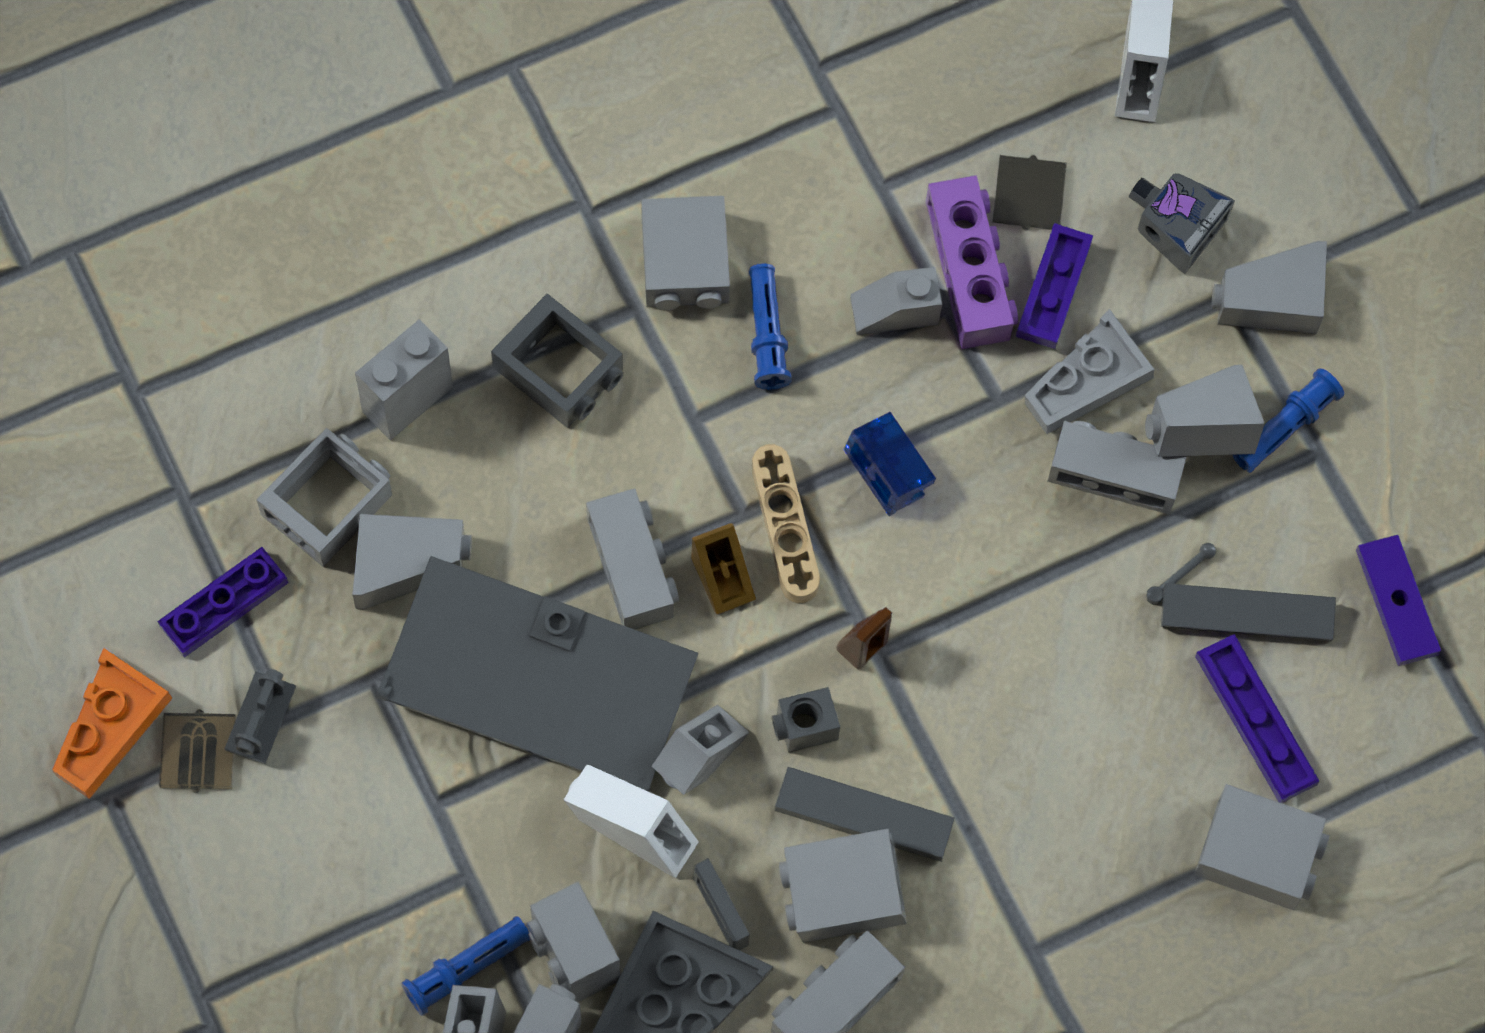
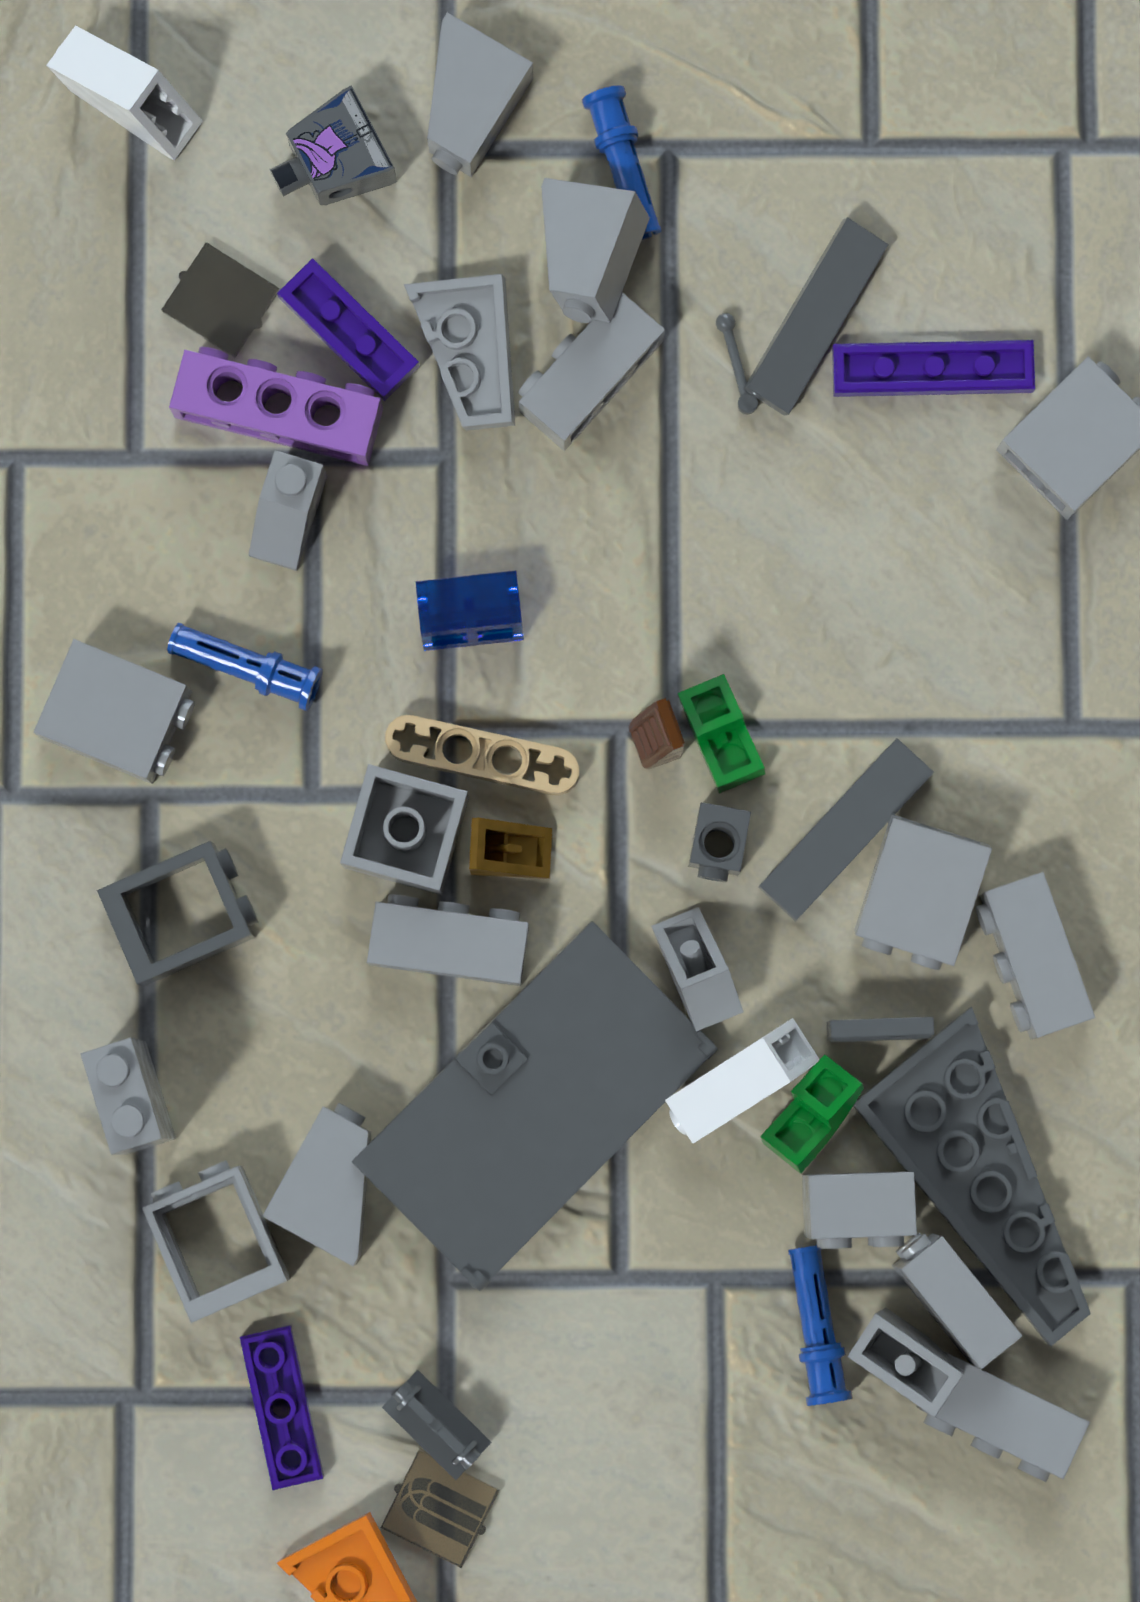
camera: 60 degrees left, 15 degrees up
(640, 889) = (814, 1115): none -> green slope
(699, 486) = (405, 829): none -> light grey brick
(891, 688) = (721, 733): none -> green slope
(1391, 577) = (910, 157): dark purple tile -> none

